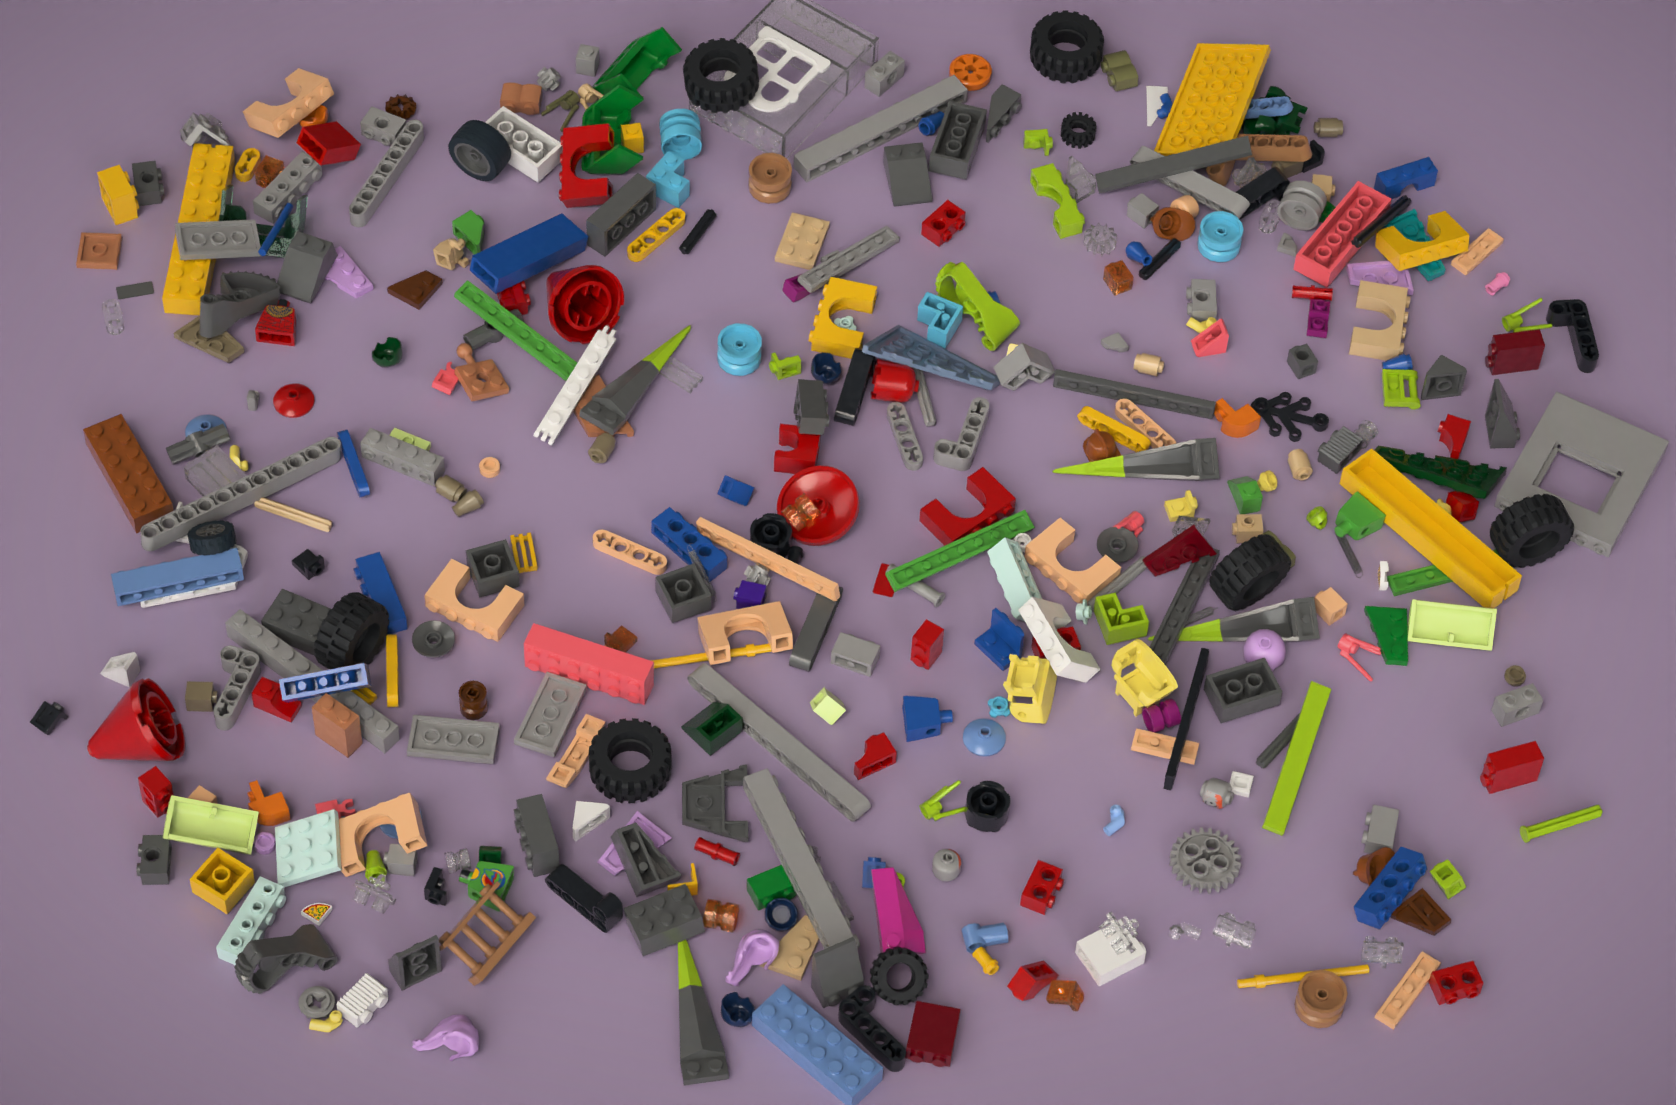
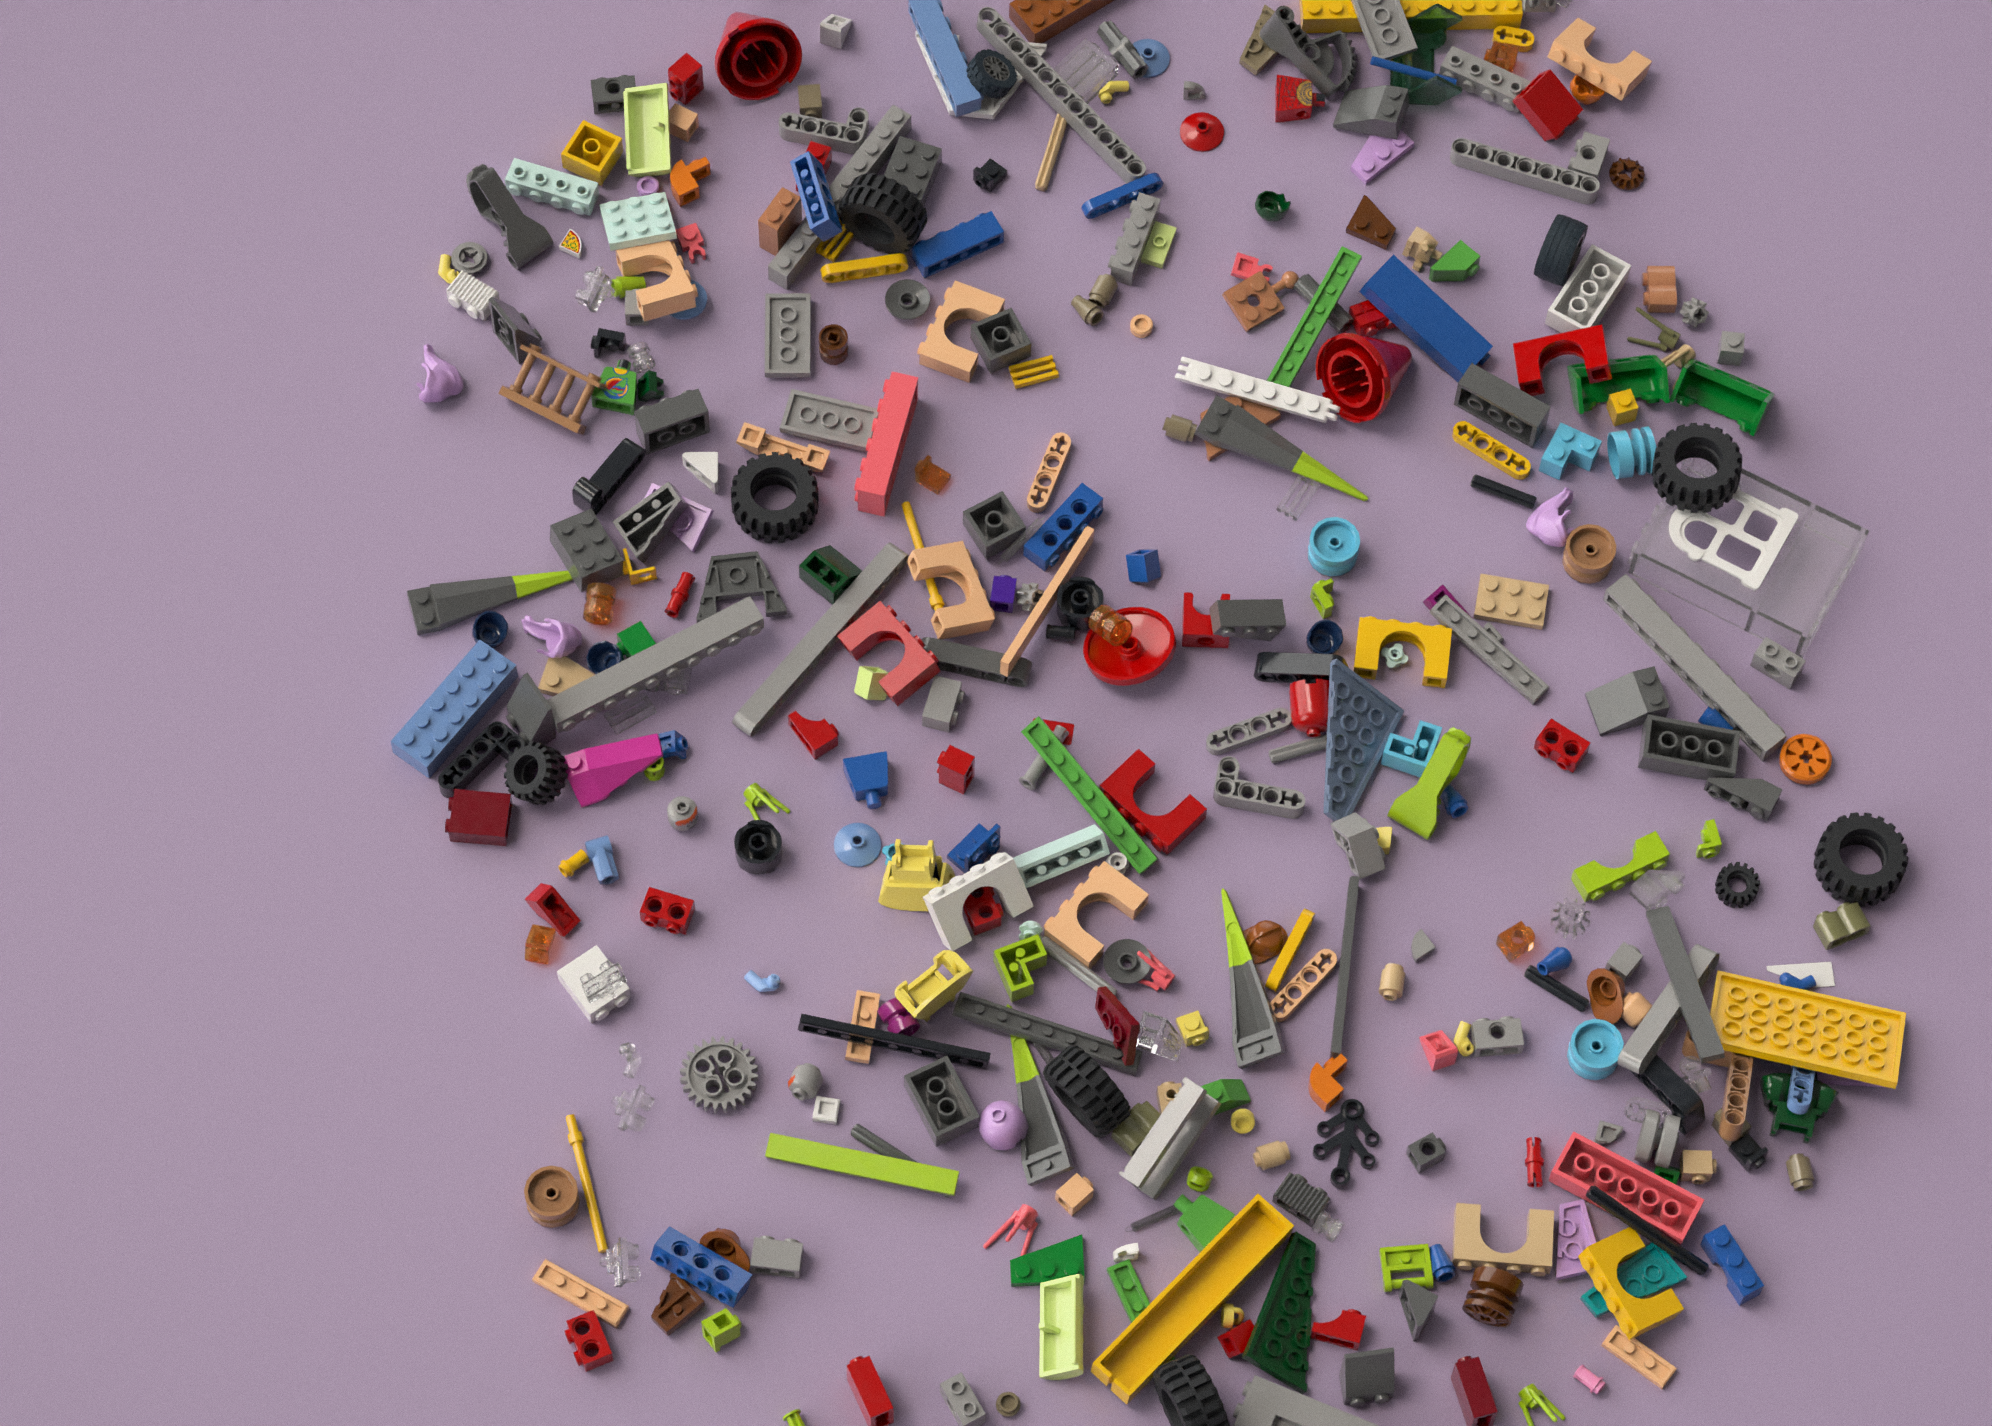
camera: 85 degrees right, 10 degrees up
(736, 200) = (1547, 522): none -> lavender piece
(820, 659) = (881, 625): none -> arch
(1294, 520) = (1170, 1139): none -> light grey piece
(1318, 318) = (1498, 1172): magenta slope -> none
(1431, 328) = (1492, 1296): none -> reddish brown wheel

